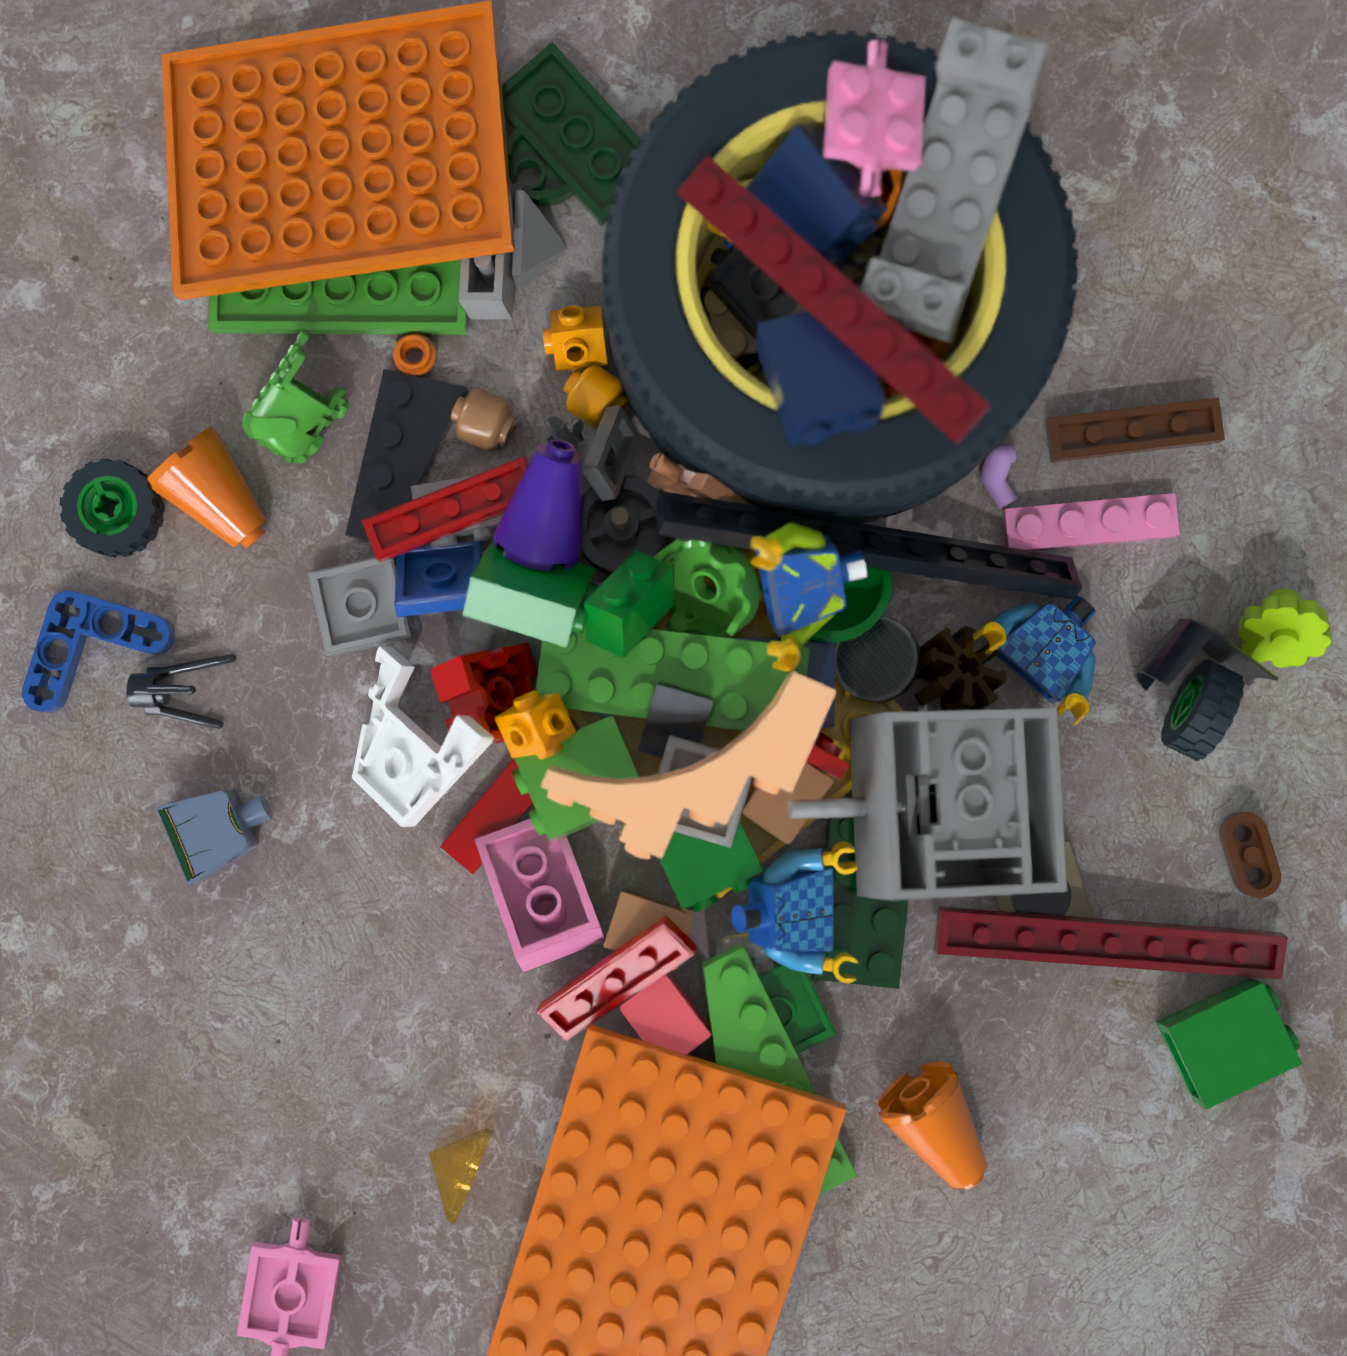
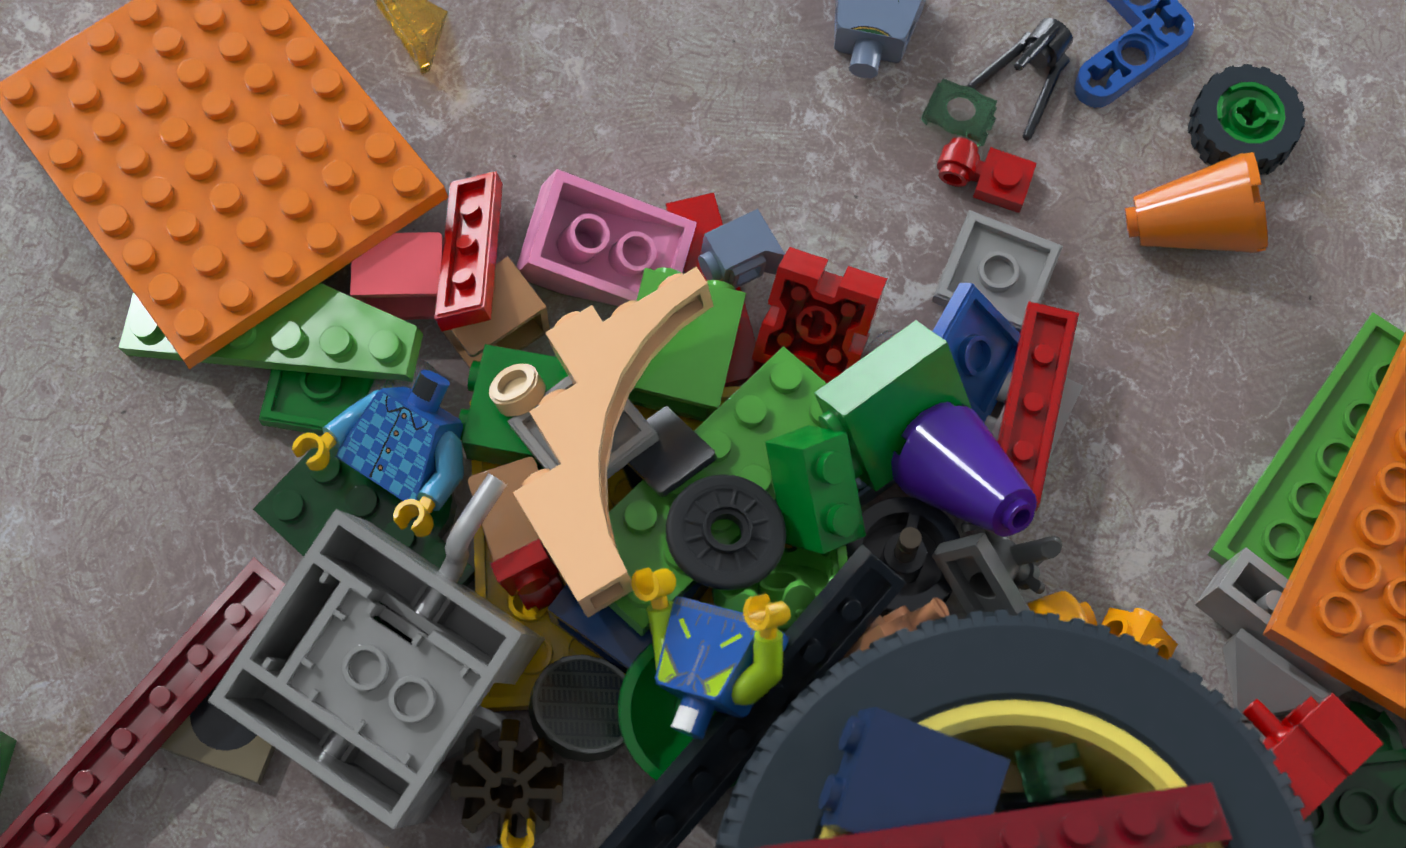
camera: 125 degrees right, 15 degrees down
(261, 732) = (974, 128): none -> clear green piece
(281, 652) = (1000, 178): none -> red plate
(290, 409) = (1236, 333): bright green helmet -> none
(400, 761) = (826, 201): white wing -> none
(402, 440) = (1141, 425): black wing -> none
(408, 344) = (1226, 477): orange plate -> none
(481, 792) = (740, 250): none -> sand blue window
(484, 420) = (1104, 506): medium nougat head -> none
(535, 725) = (760, 325): light orange brick -> none
(579, 174) = (1315, 745): none -> red brick
(704, 857) = (517, 389): none -> tan tile
(716, 666) = (719, 564): none -> black wheel
(729, 316) = (1041, 773): none -> clear green piece
(936, 1123) = (103, 445): orange cone -> none

